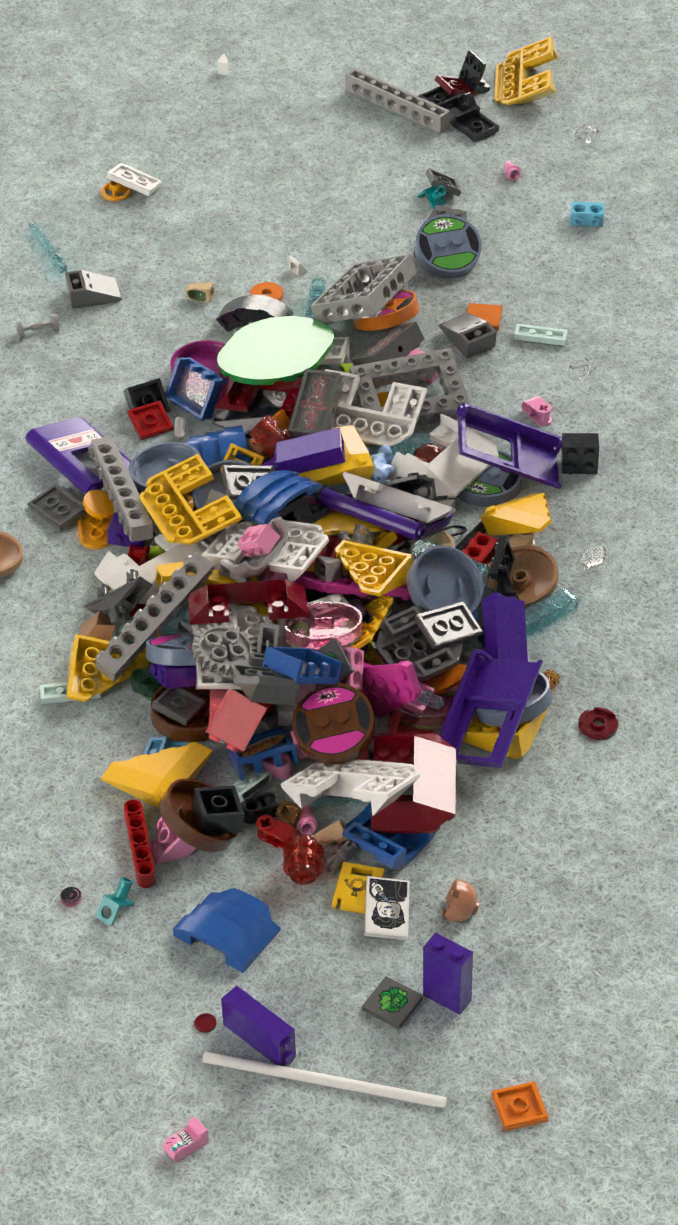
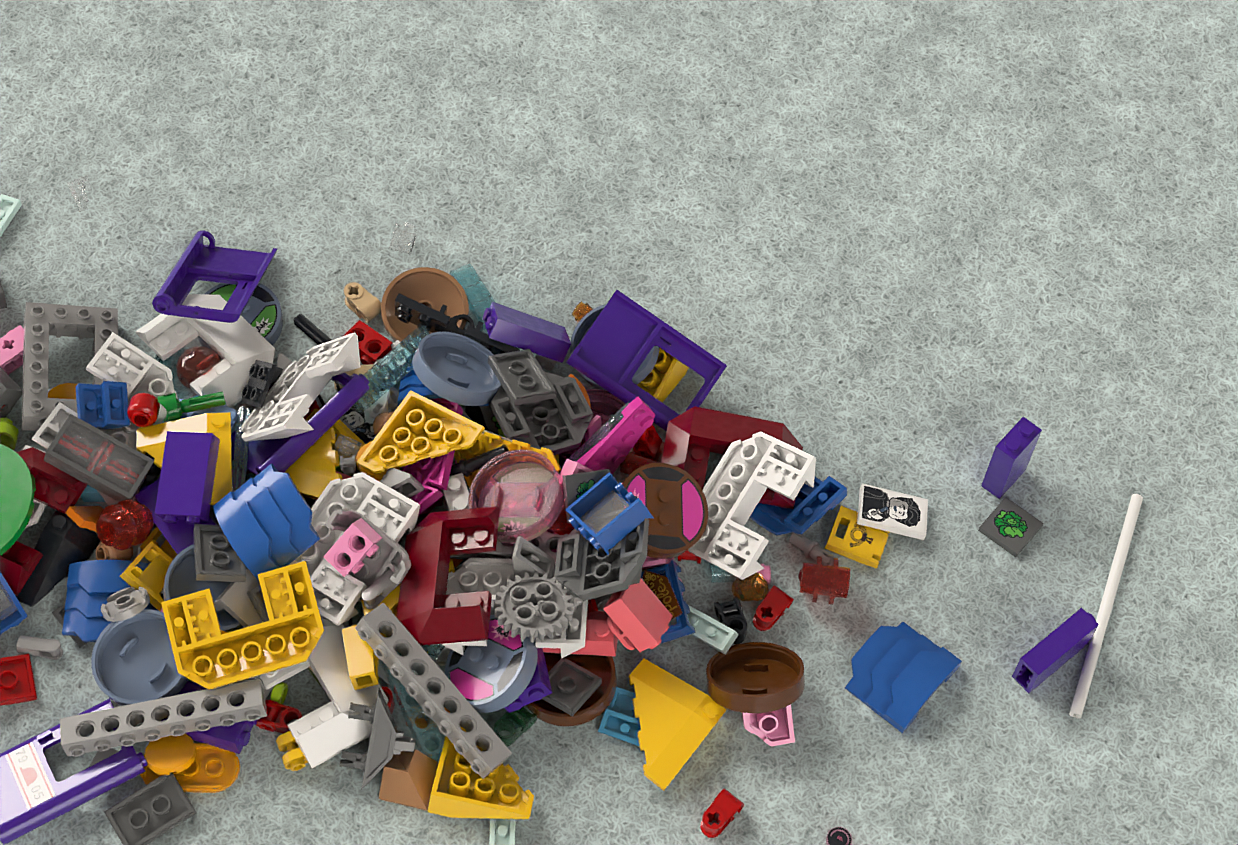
camera: 85 degrees left, 15 degrees up
(85, 815) = (721, 811): none -> red piece
(115, 901) = (858, 786): teal bracket -> none
(139, 843) = (780, 747): red beam -> none
(186, 1140) = (1188, 741): bright pink leg -> none
(205, 1022) = (1027, 710): dark red piece -> none
(207, 451) = (125, 604): none -> light grey tile
(217, 810) = (761, 653): black brick -> none
(332, 834) = (780, 551): tan rock -> none
(364, 399) = (103, 404): none -> blue slope
(365, 421) = (143, 409): none -> red head
(374, 440) = (176, 407): none -> green piece
(417, 719) = (648, 444): none -> red piece
(460, 902) = (895, 441): nougat cylinder -> none
(518, 516) = (327, 290): yellow slope -> none
(519, 1106) = (1140, 435): orange tile -> none
(537, 410) = (135, 249): bright pink piece -> none
(579, 453) = (237, 217): black brick -> none
(598, 732) = (649, 293): dark red tile -> none

